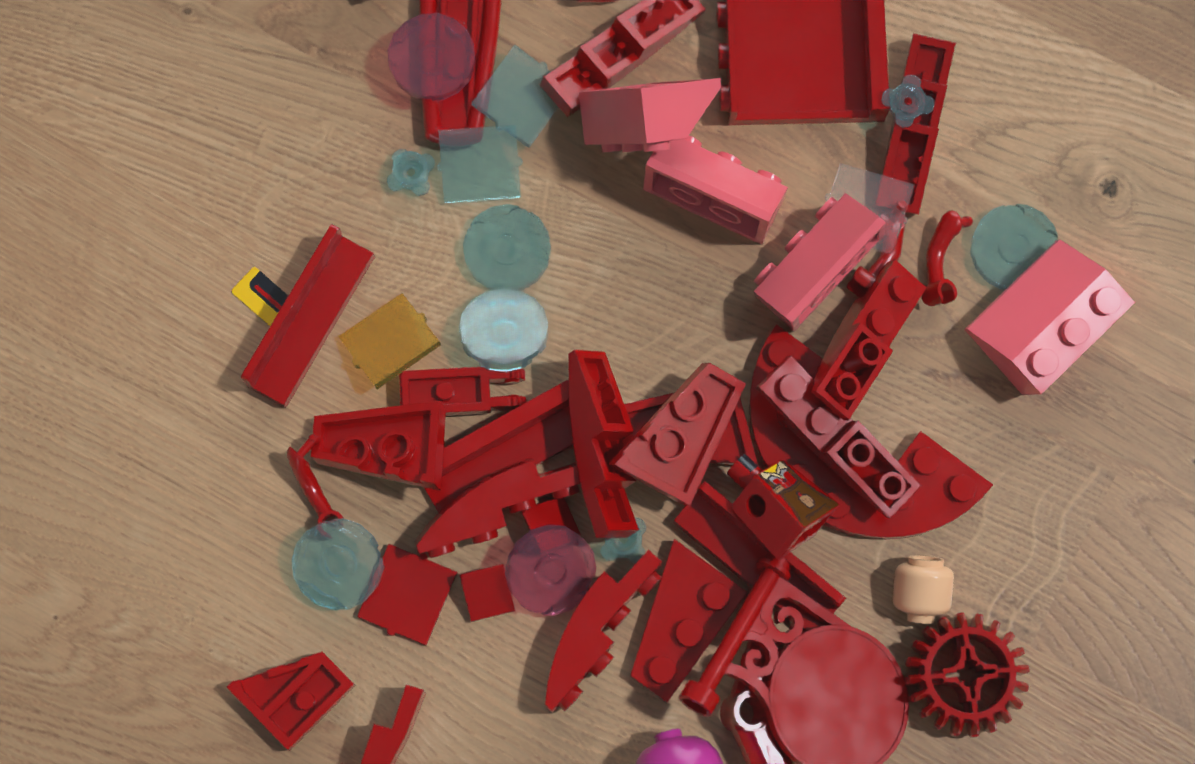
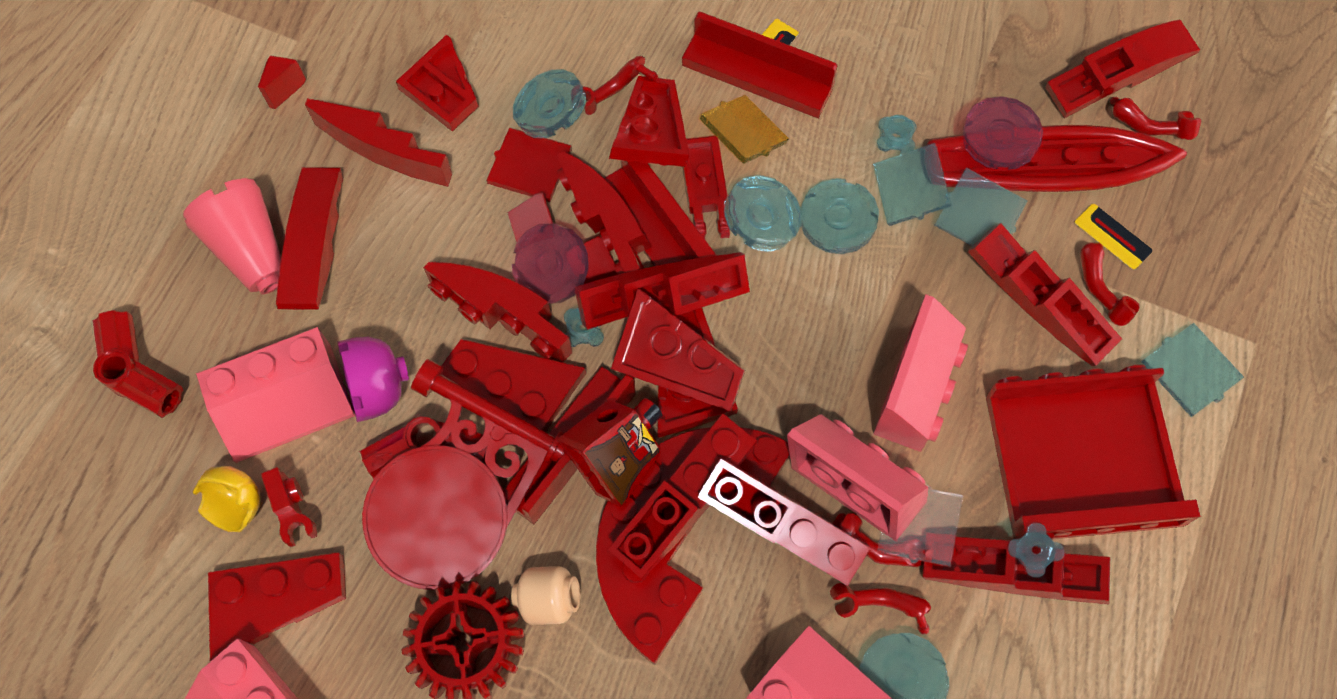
camera: 90 degrees right, 10 degrees down
(644, 114) = (978, 297): coral slope -> none

